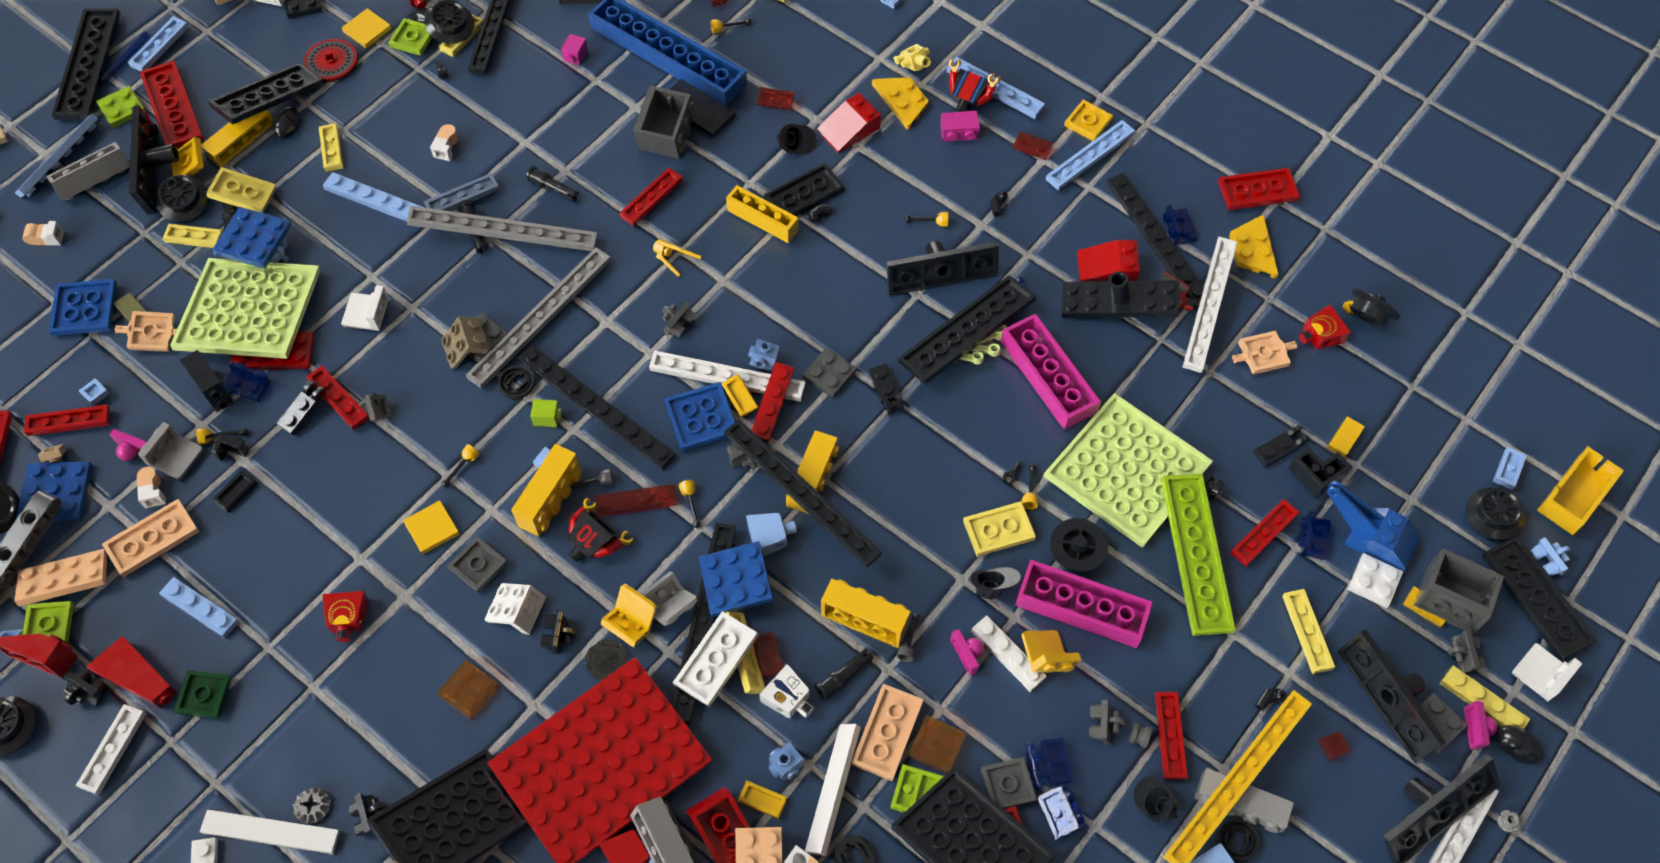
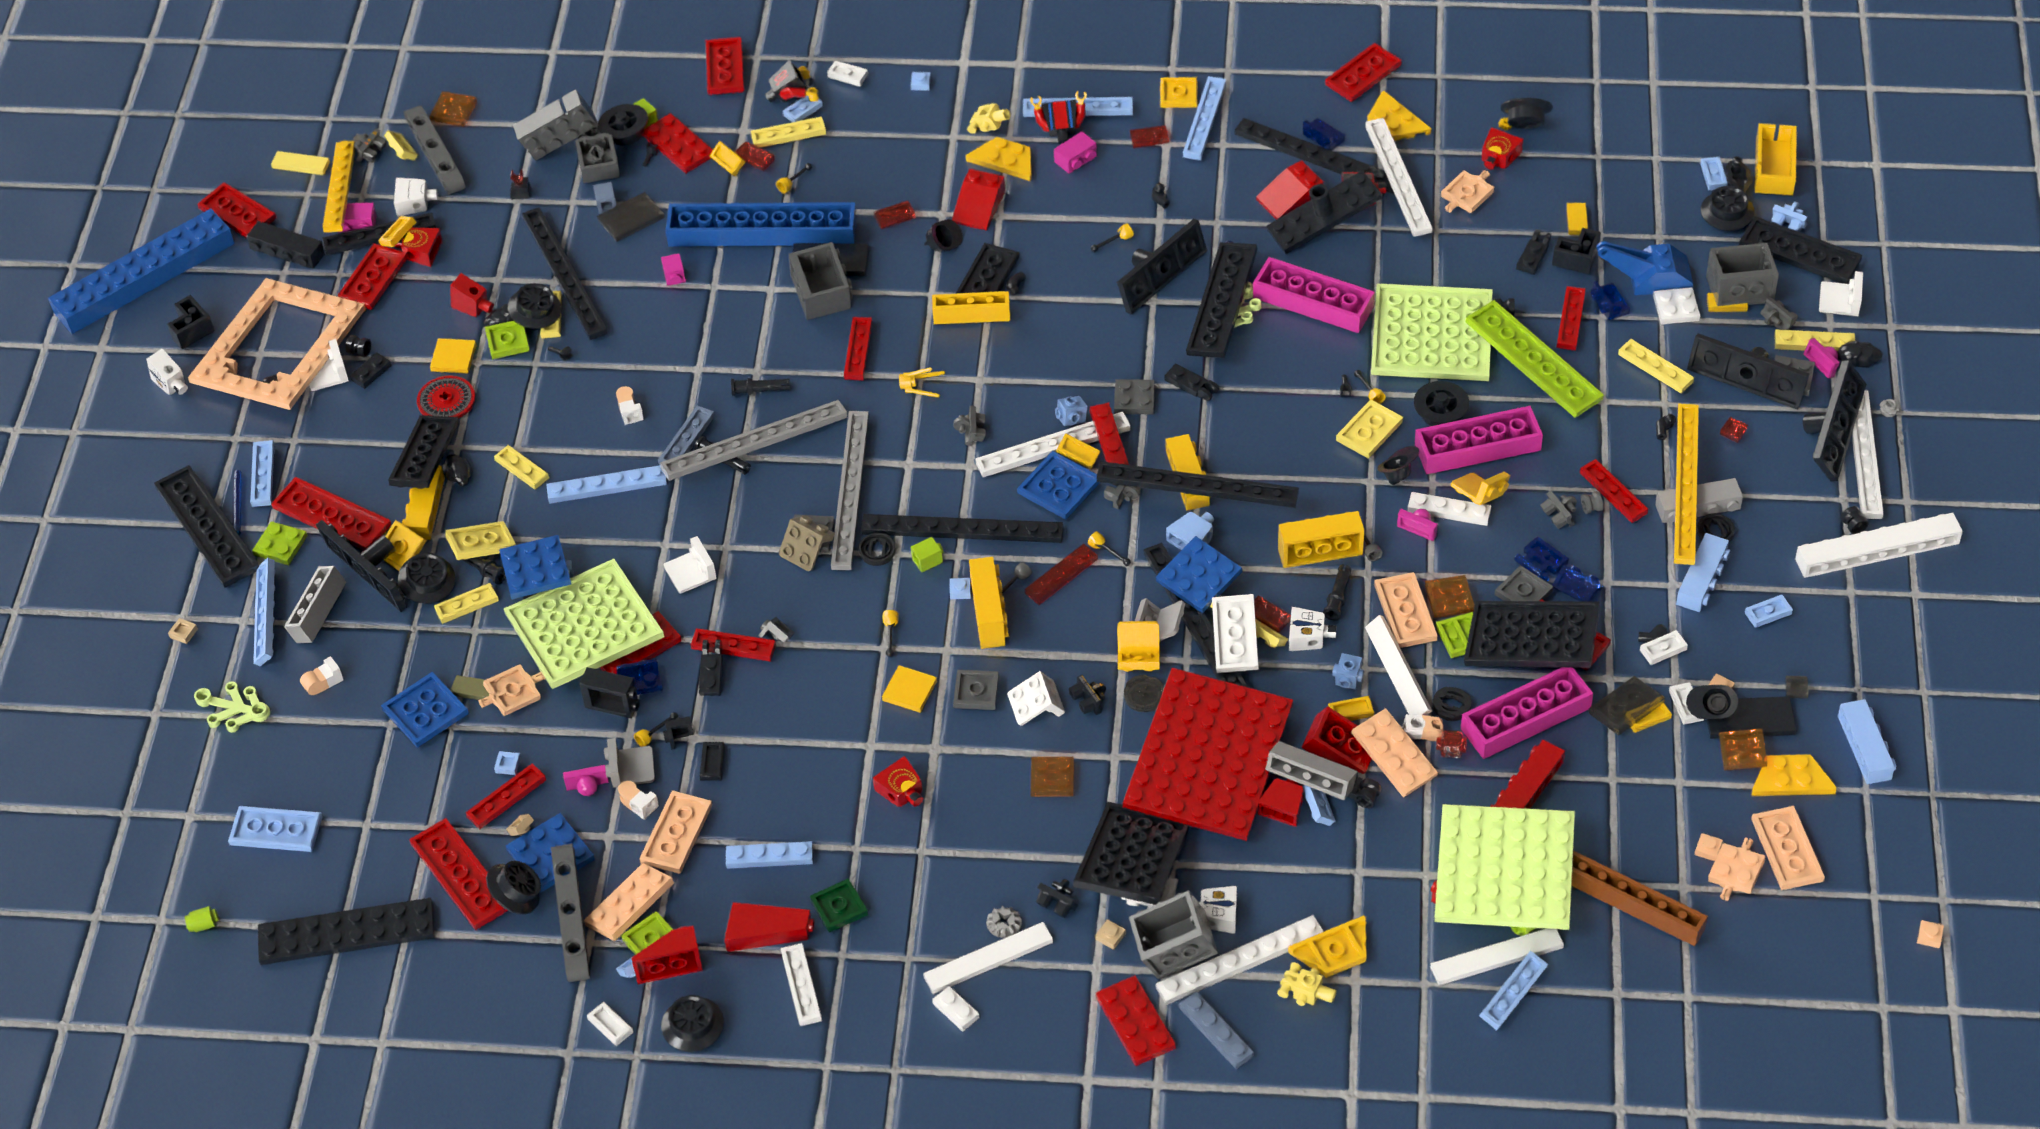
camera: 30 degrees left, 10 degrees down
(79, 690) = (732, 960): black hips -> none
(592, 535) = (1053, 612): torso -> none
(1155, 799) = (1637, 535): black piece -> none
(1531, 484) = (1738, 174): none -> black arm

